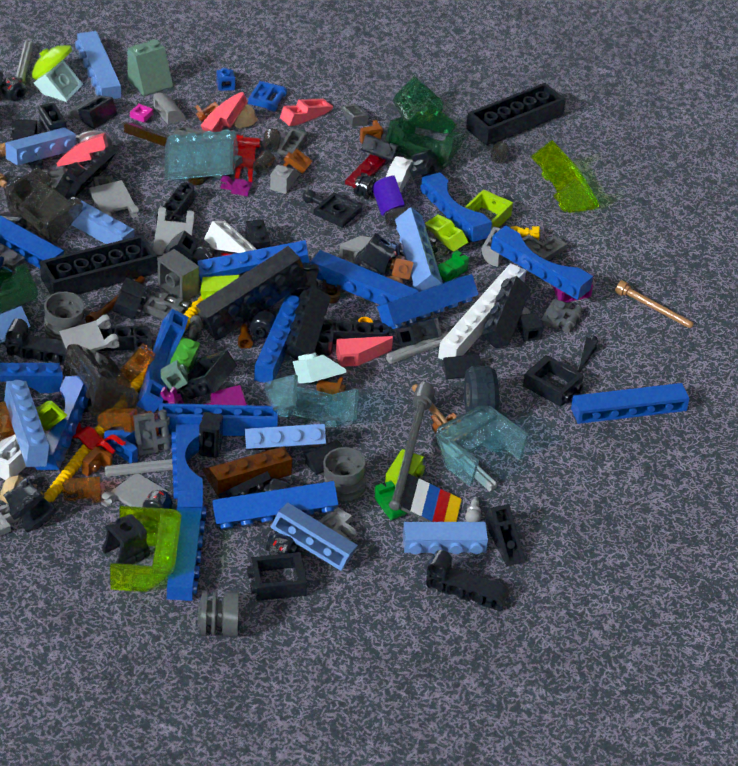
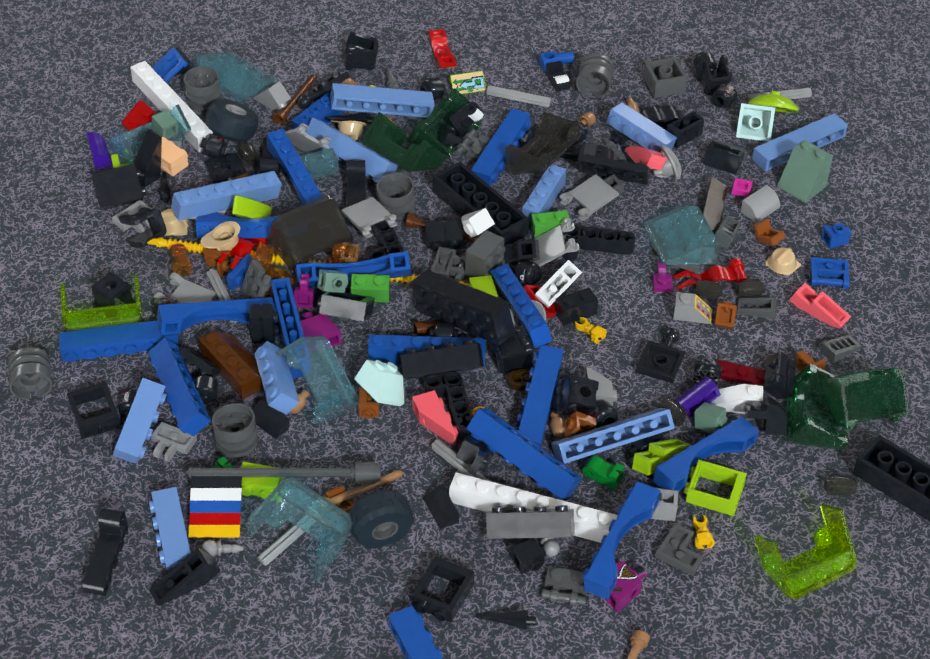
camera: 80 degrees right, 5 degrees up
(83, 437) = (222, 237): none -> tan piece
(138, 266) = (477, 222): none -> white slope
(146, 226) = (546, 221): none -> bright green brick
(225, 113) = (760, 241): coral slope -> none
(290, 236) = (592, 330): none -> yellow piece
(415, 195) = (710, 417): none -> sand green brick

